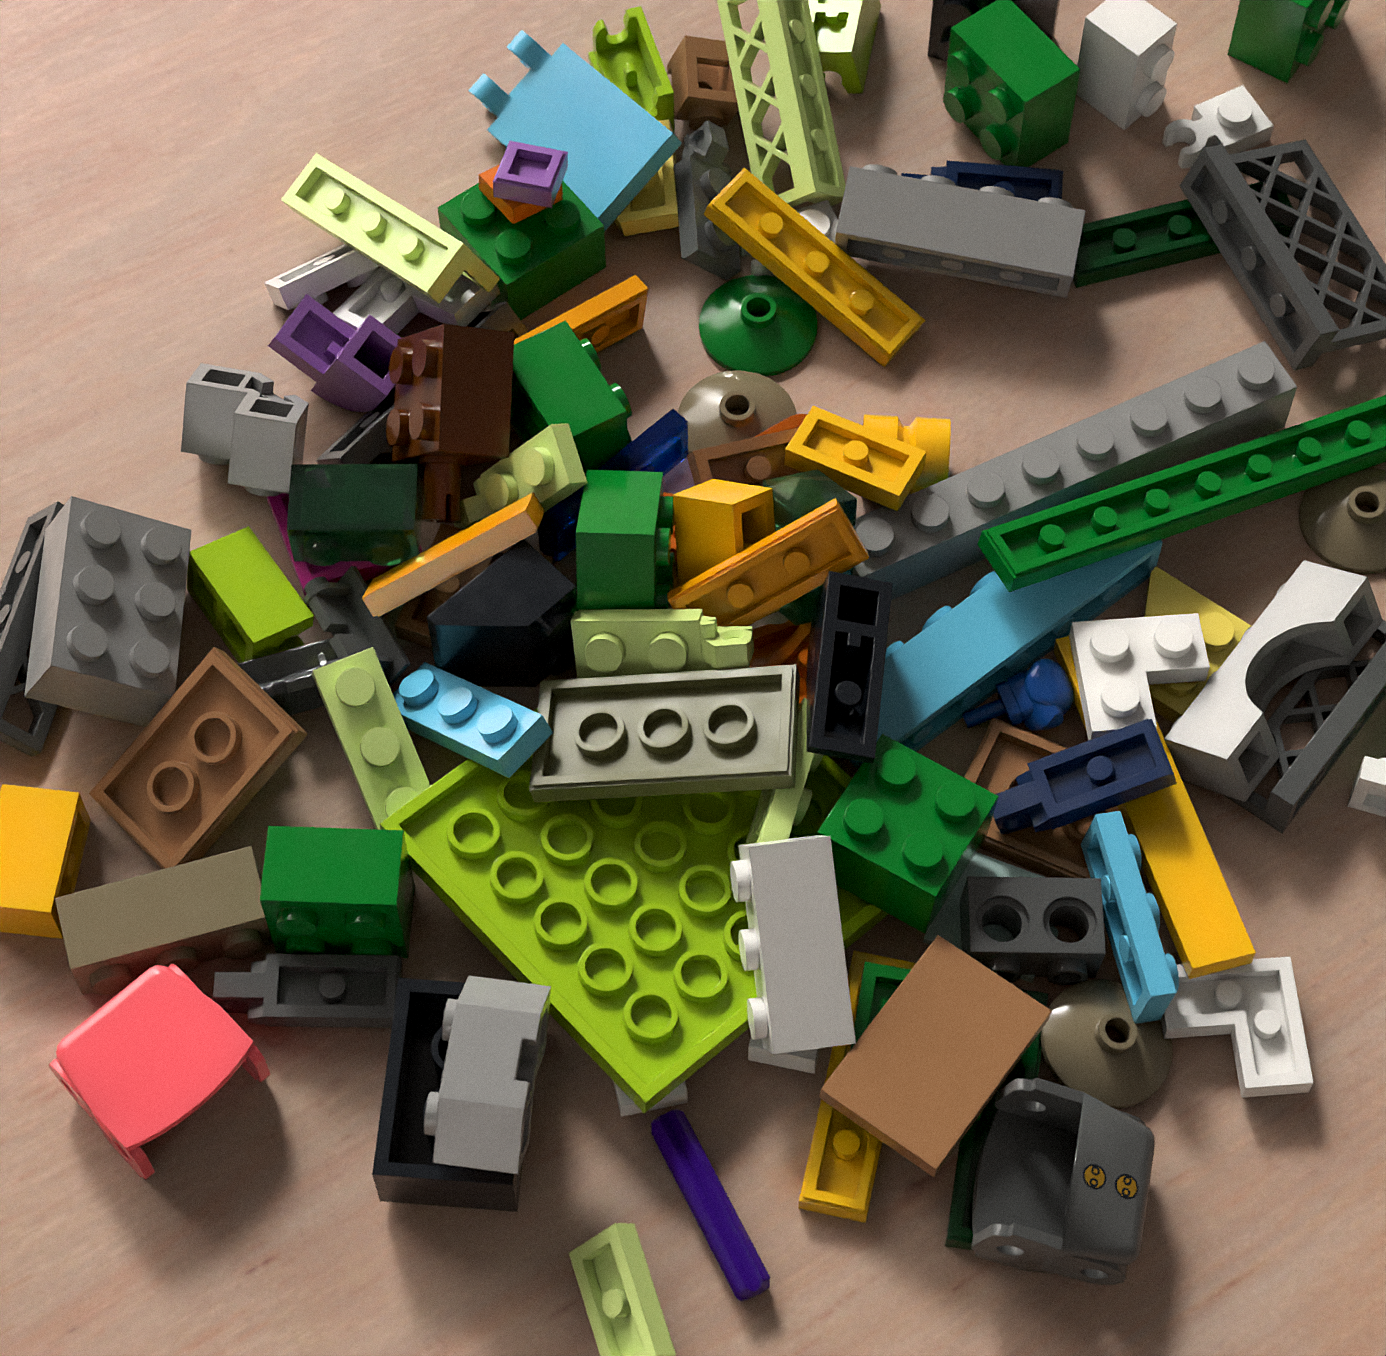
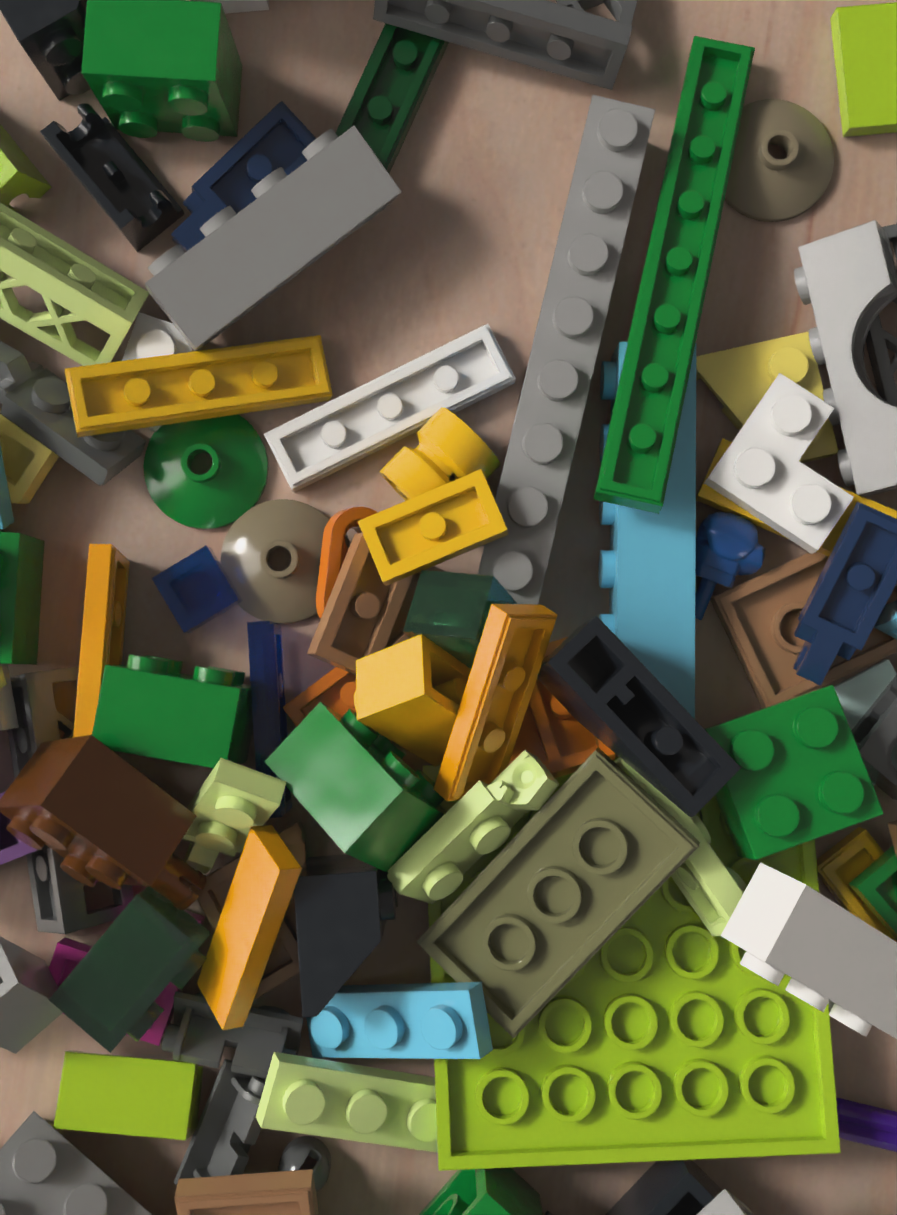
camera: 50 degrees left, 25 degrees up
(294, 774) = (298, 1150): none -> dark grey hinge
(664, 376) = (197, 589): none -> clear blue plate
(873, 386) = (389, 407): none -> white tile
(907, 115) = (114, 177): none -> black hinge

